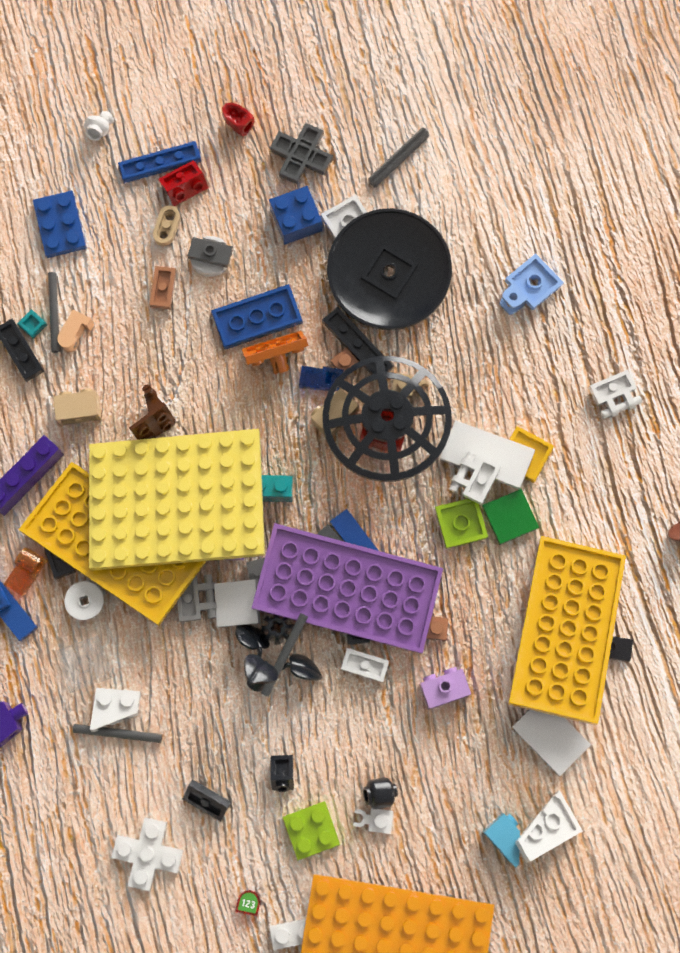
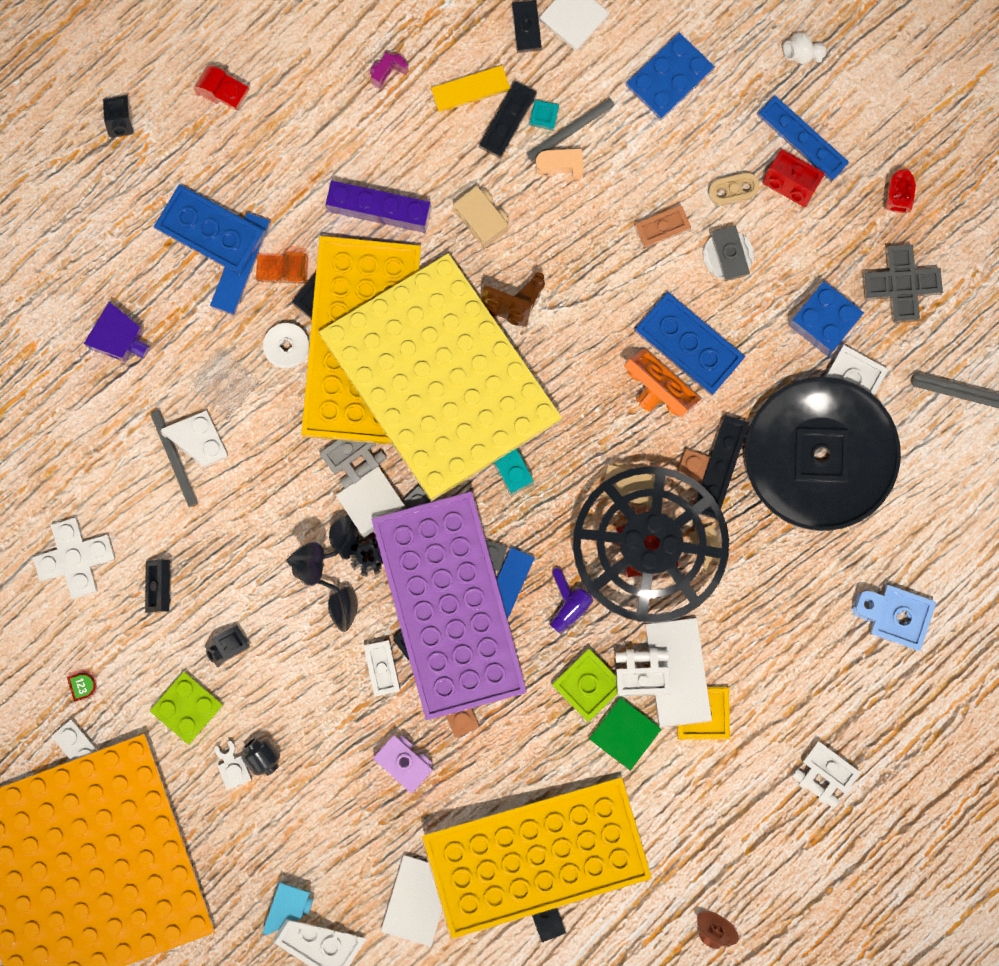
camera: 60 degrees right, 5 degrees up
(286, 651) = (349, 579): dark grey piece -> none
(318, 378) = (659, 448): clear blue slope -> none
(397, 499) = (574, 603): none -> dark purple piece

